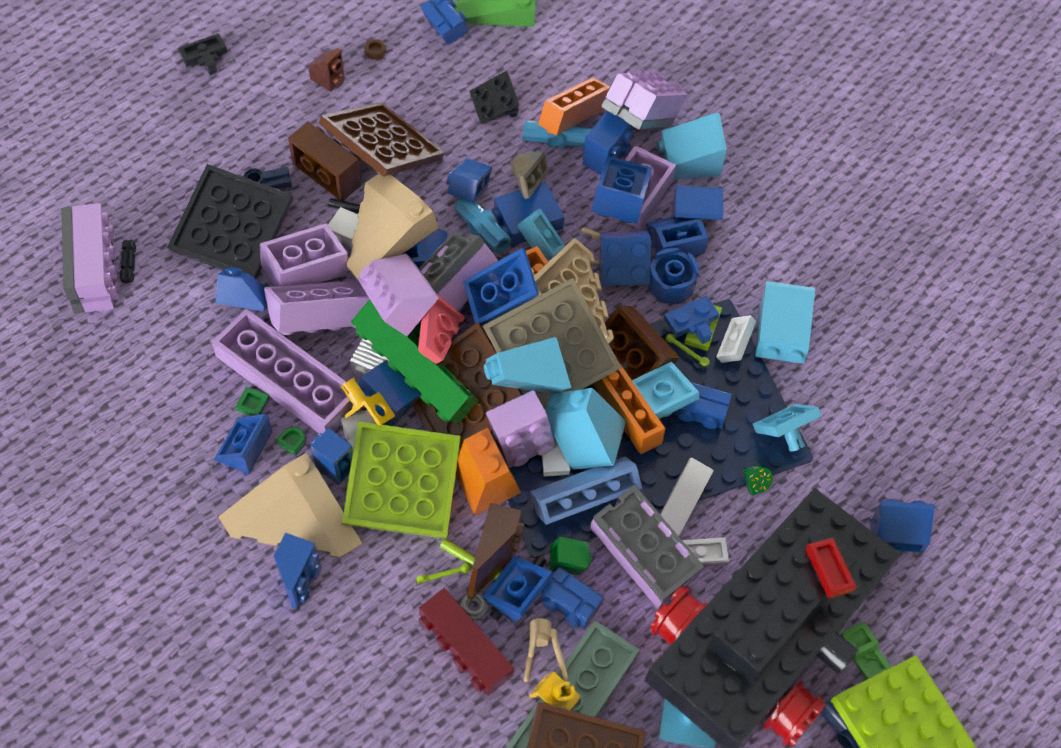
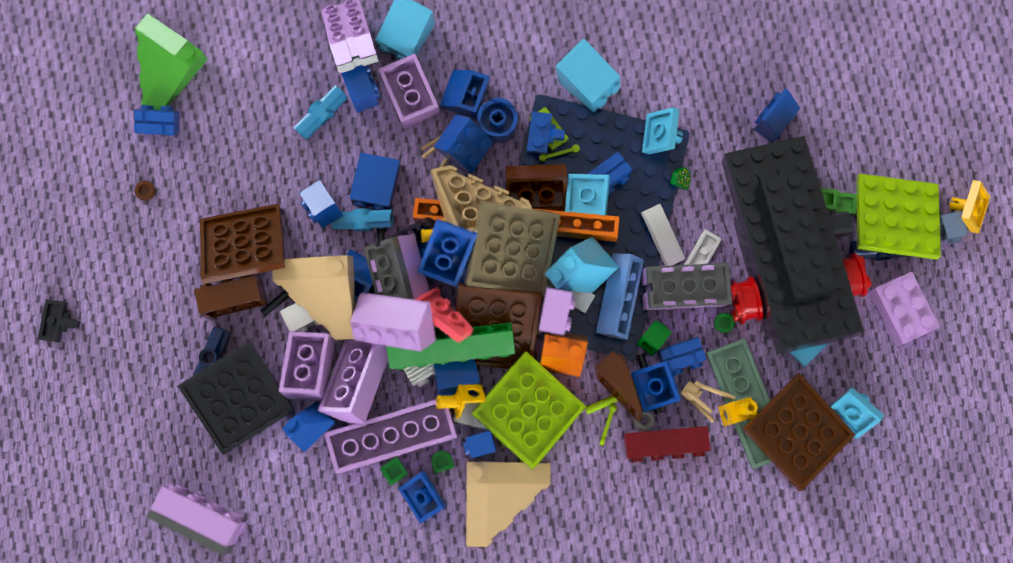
camera: 50 degrees left, 20 degrees up
(127, 261) = (213, 489): black axle -> none
(297, 566) = (545, 521): blue slope -> none
(328, 69) = (143, 240): copper slope -> none
(495, 98) = (256, 135): black hinge -> none
(529, 171) = (343, 156): dark tan slope -> none
(530, 368) = (525, 278): medium azure slope -> none
(541, 233) = (403, 186): medium azure slope -> none
(573, 106) = (314, 87): orange brick -> none
(621, 190) = (413, 106): blue slope -> none
(640, 621) = (723, 322): none -> green tile
(698, 202) = (456, 62): blue slope -> none
(736, 339) = (575, 116): white plate -> none
(830, 568) = (800, 193): red tile -> none

